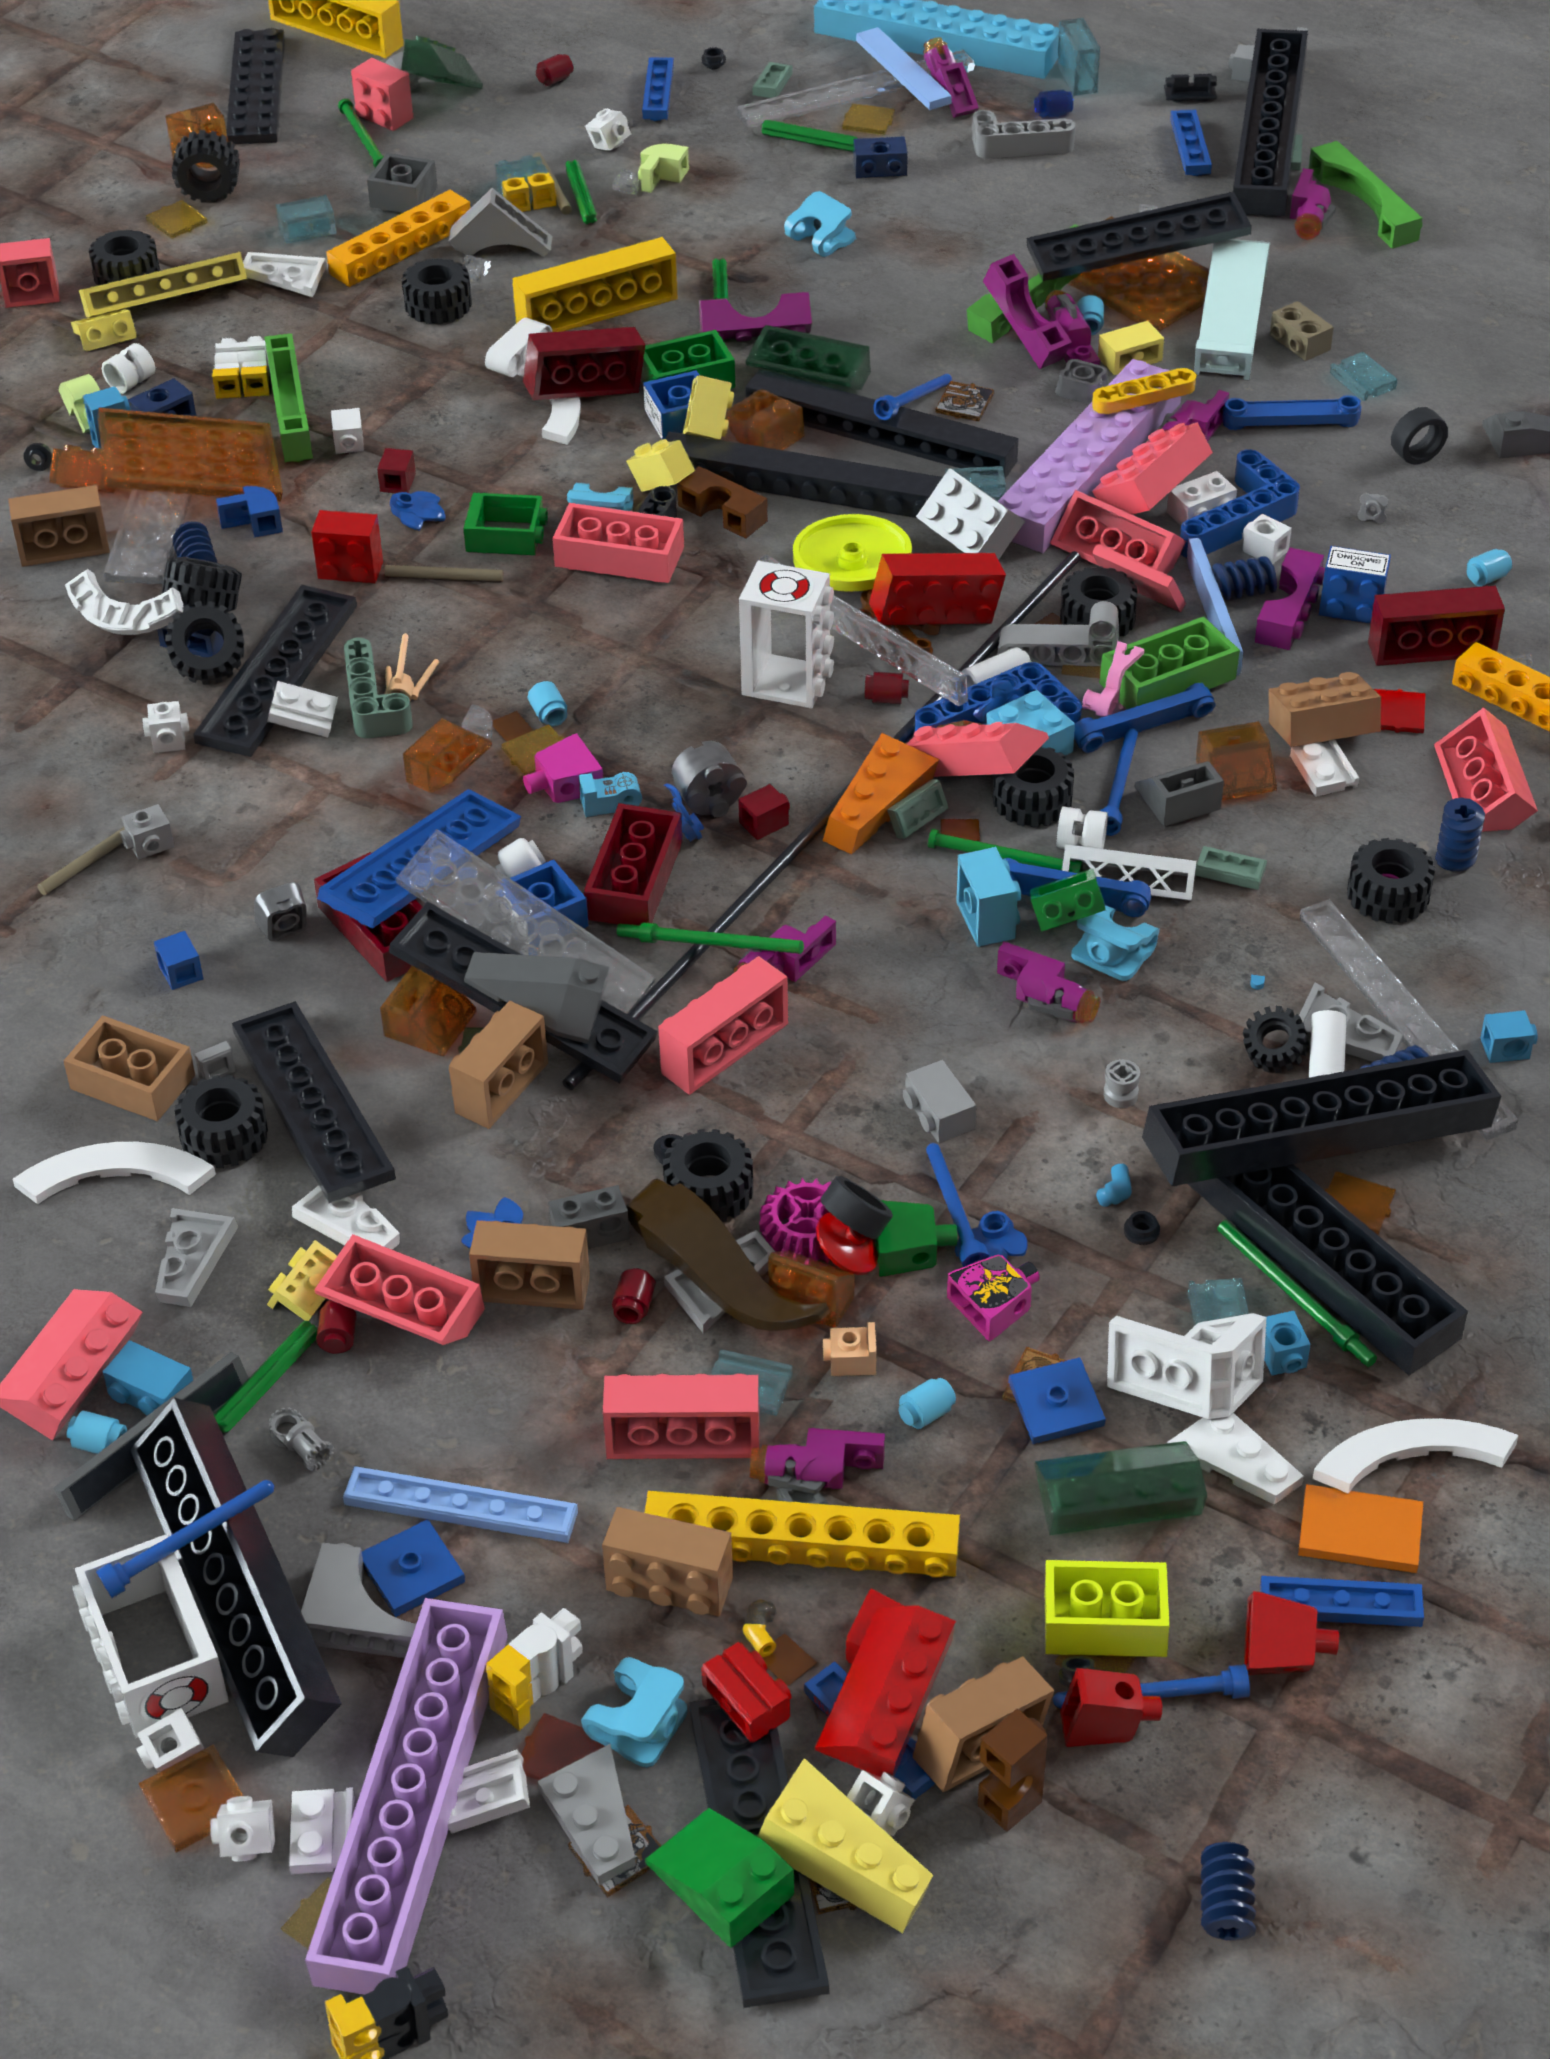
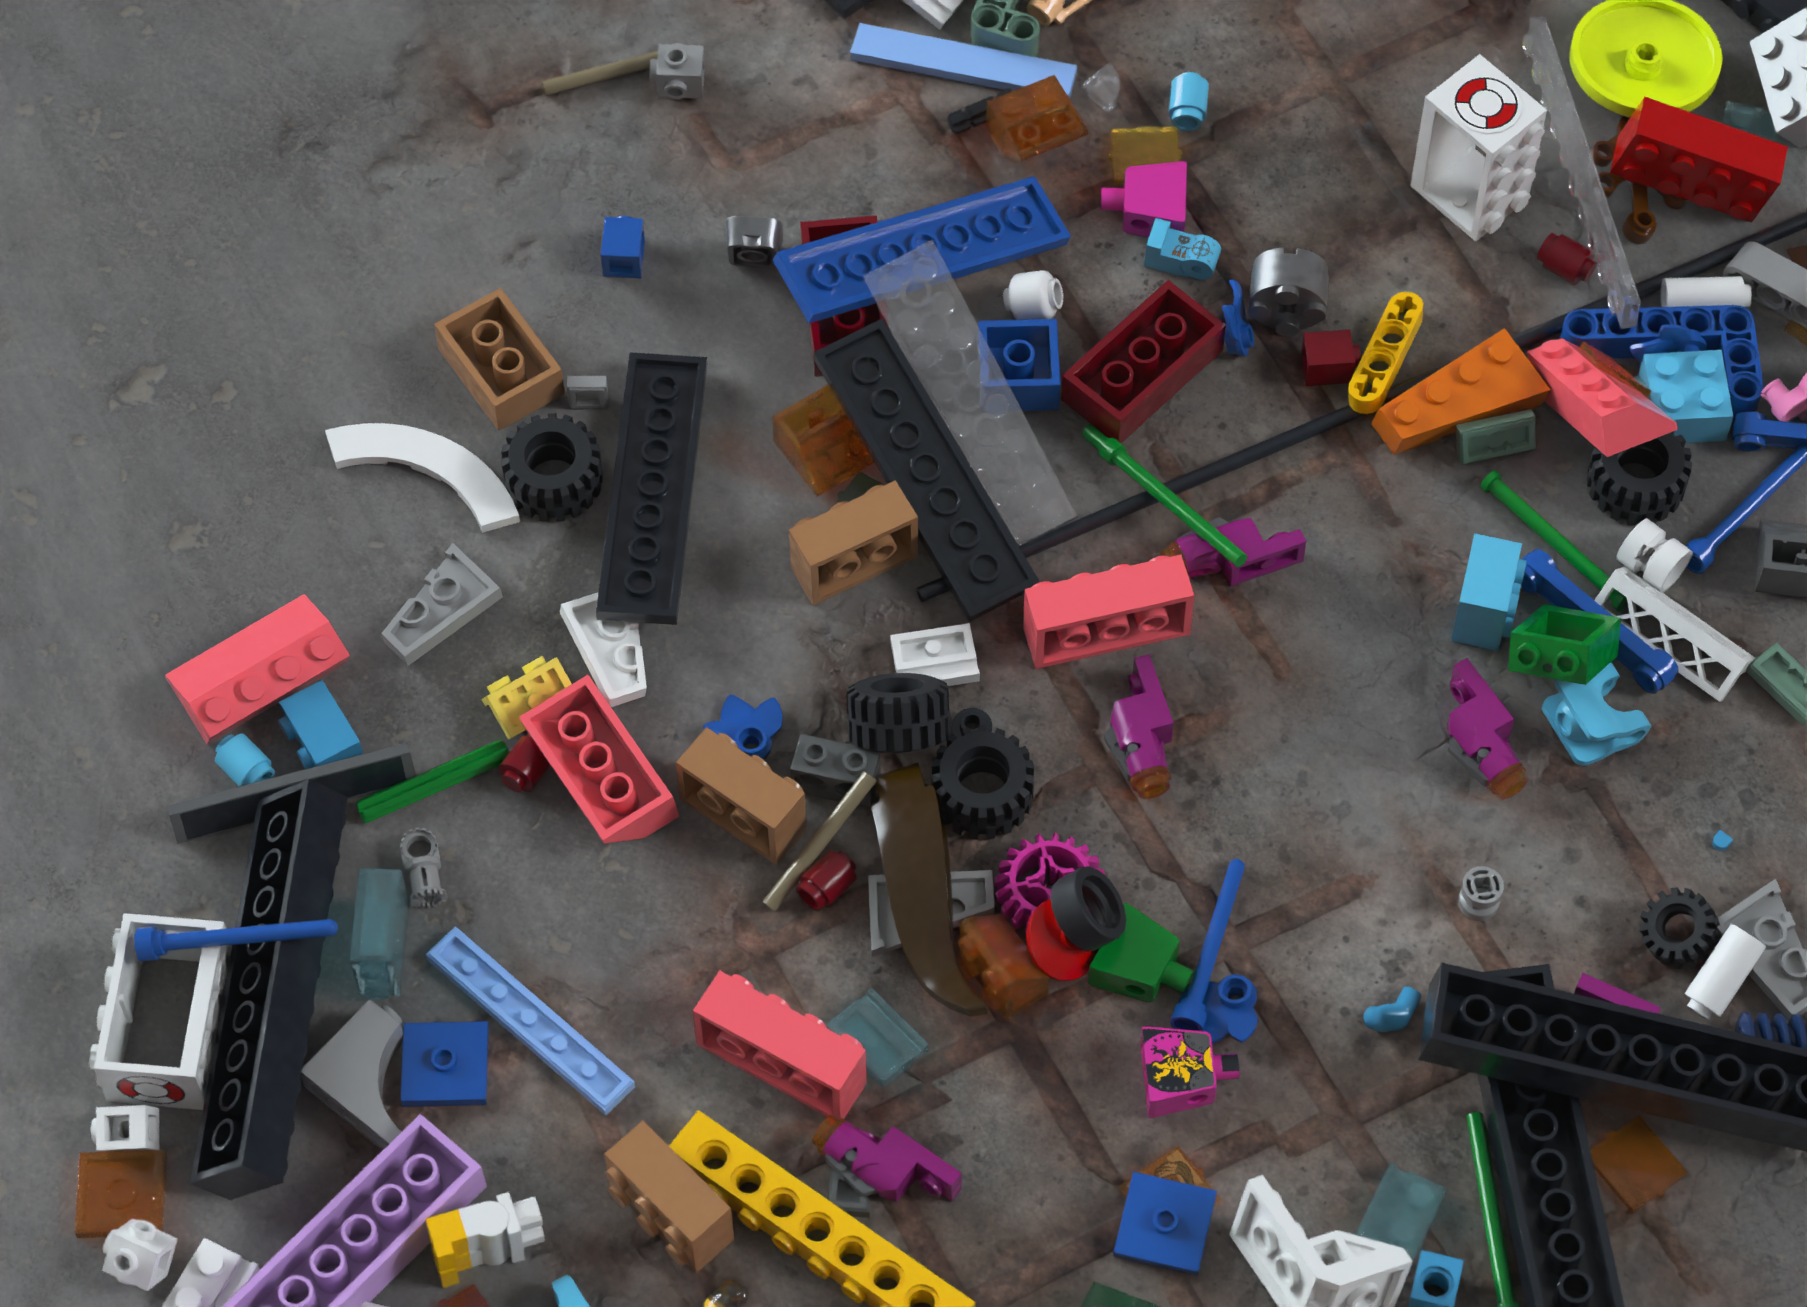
camera: 30 degrees right, 15 degrees up
(299, 1491) = (379, 933): none -> clear light blue brick
(347, 749) = (955, 60): none -> light blue tile
(392, 774) = (973, 114): none -> black axle
(511, 726) = (1138, 109): reddish brown sticker -> none
(557, 987) = (944, 485): dark grey wedge -> none
(610, 1117) = (937, 652): none -> white plate
(611, 1269) = (819, 840): none -> dark tan bar
(615, 1153) = (898, 712): none -> black tyre
(800, 1091) = (1140, 730): none -> magenta plate
(802, 792) = (1390, 353): none -> yellow beam
(851, 1350) = (1002, 1069): light nougat brick -> none
(926, 1403) = (1033, 1156): medium azure brick -> none
(939, 1101) = (1276, 815): light grey brick -> none
(961, 828) = (1531, 482): reddish brown sticker -> none
(1142, 1228) = (1390, 1065): black plate -> none

